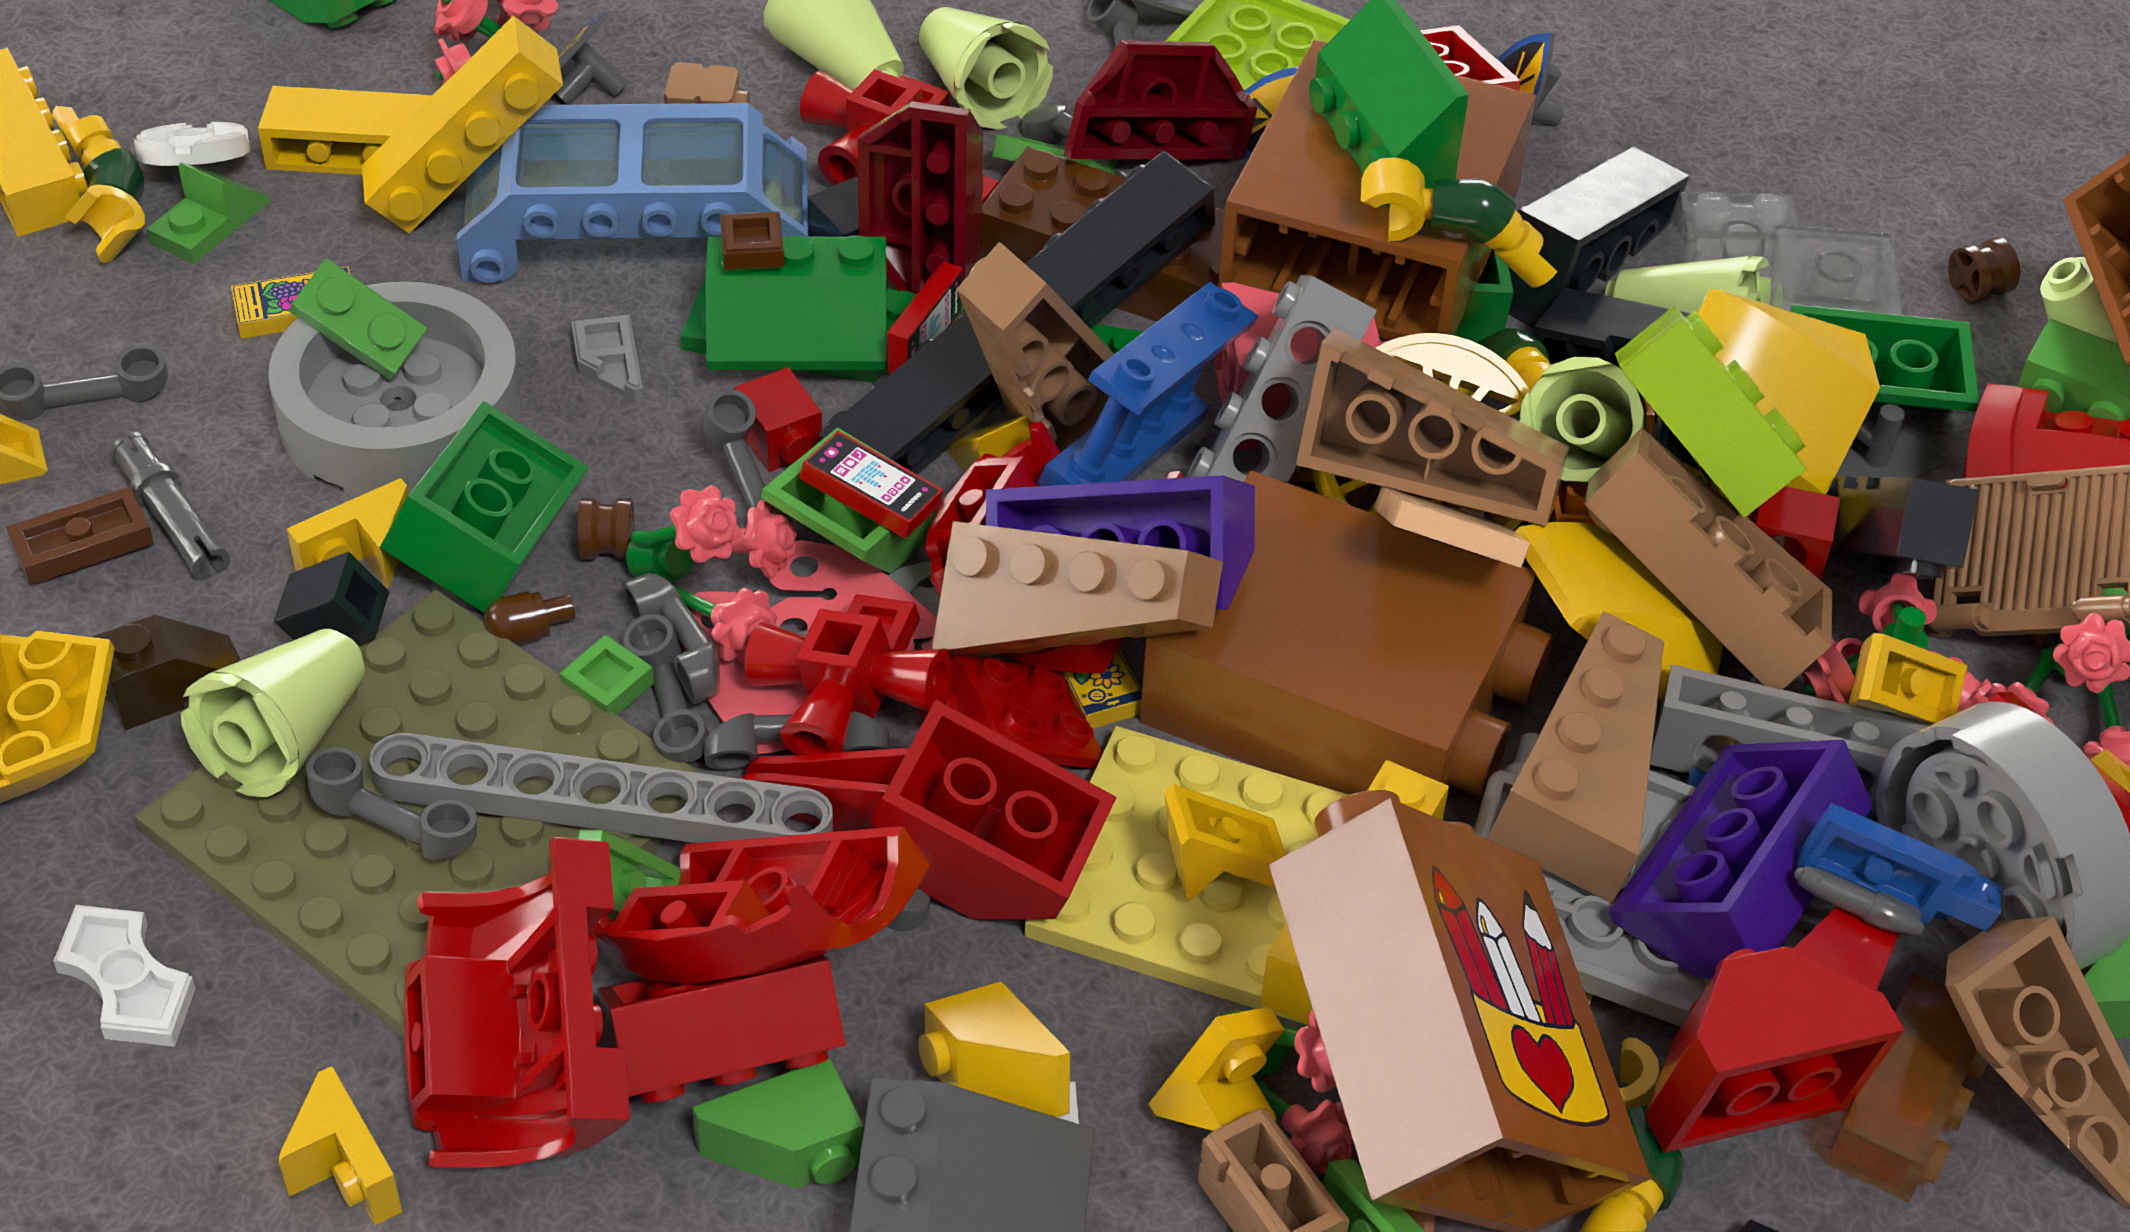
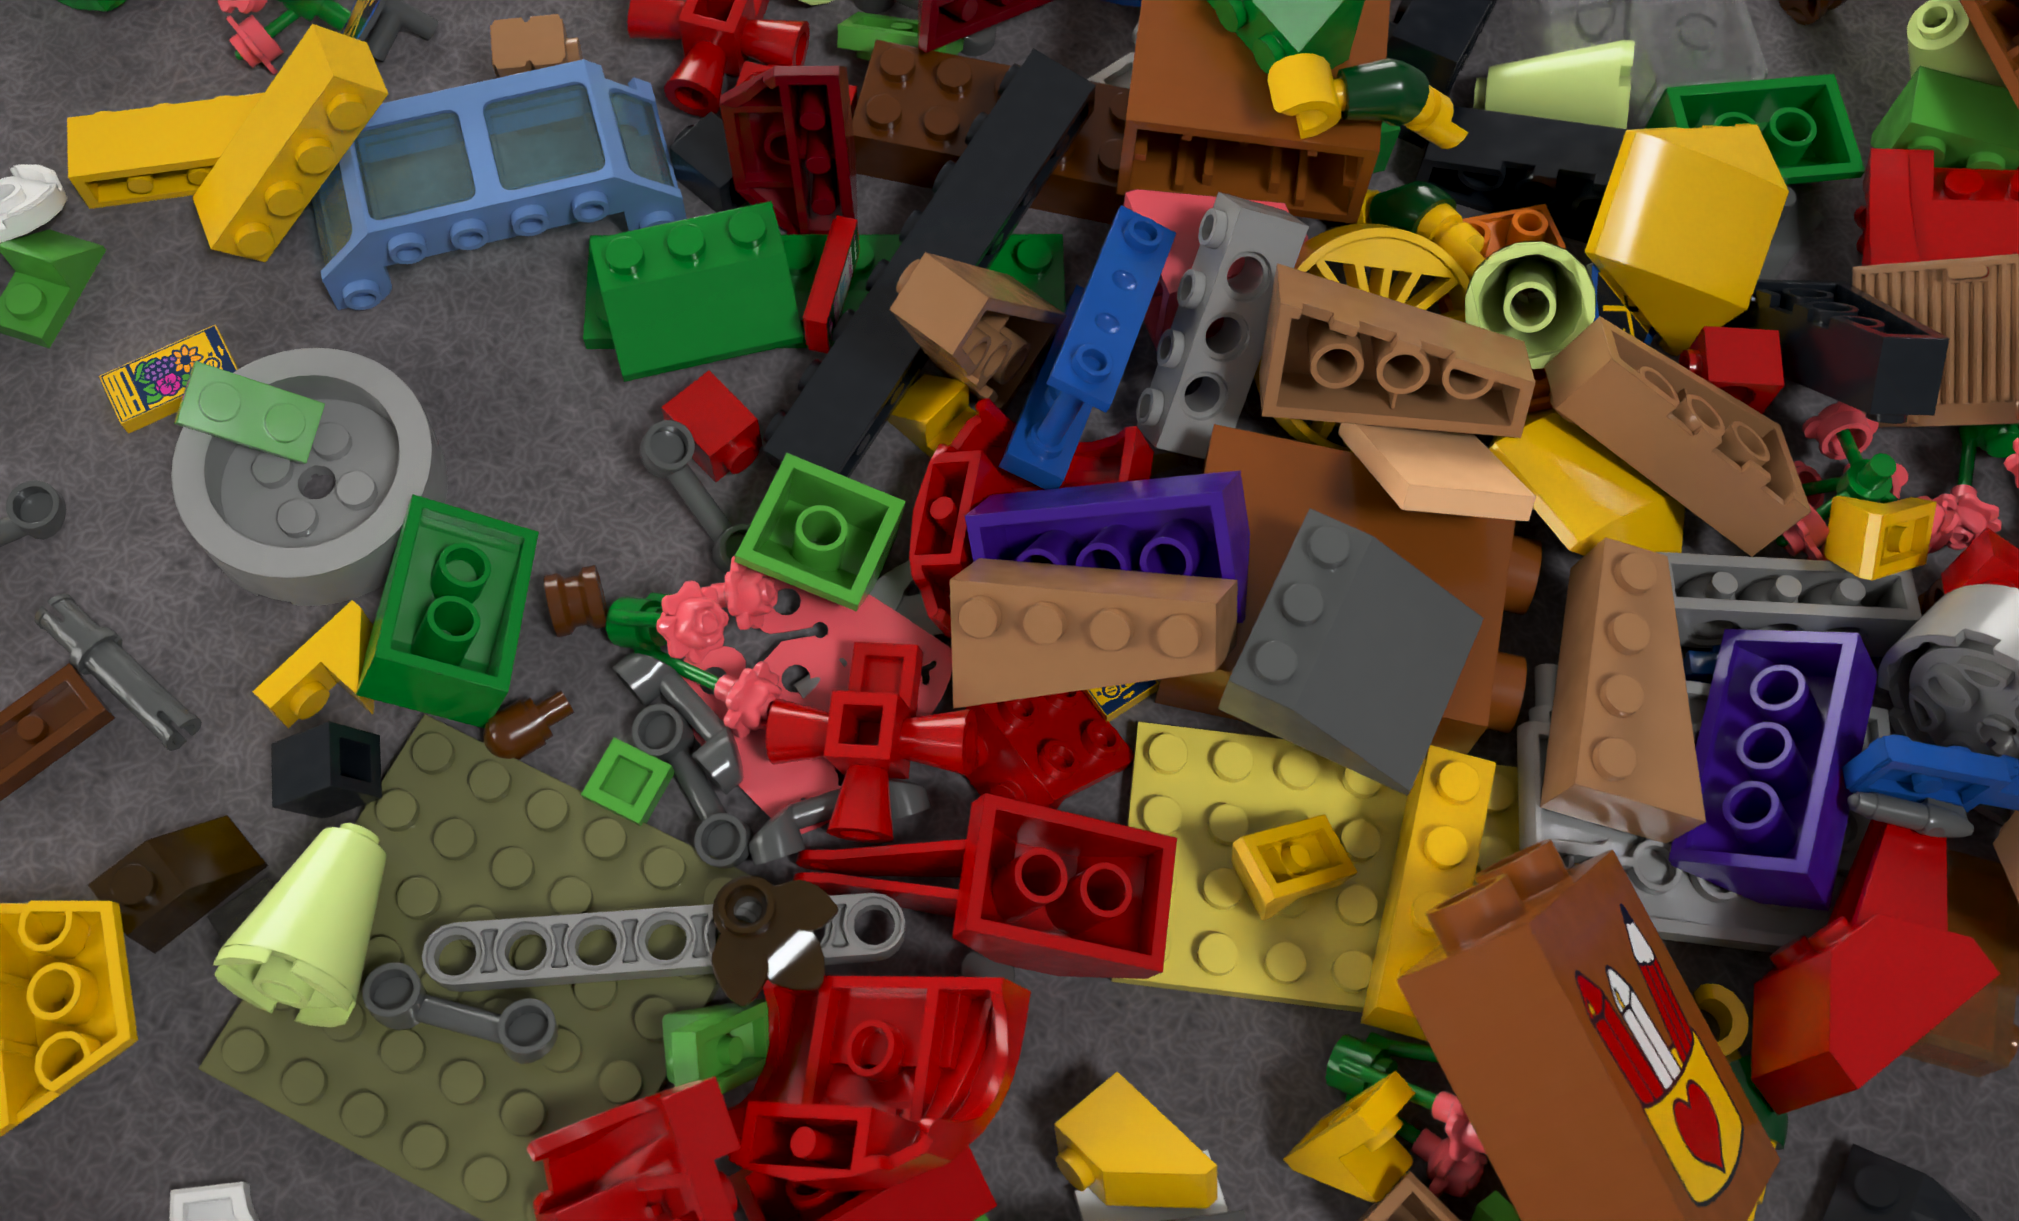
camera: 15 degrees left, 20 degrees up
(609, 354) = (515, 374): light grey tile -> none
(698, 793) = (777, 944): none -> dark brown plate
(752, 240) = (639, 244): reddish brown tile -> none
(871, 484) = (842, 523): tile -> none
(1321, 654) = (1353, 654): none -> dark grey slope
(1713, 409) = (1660, 276): lime brick -> none

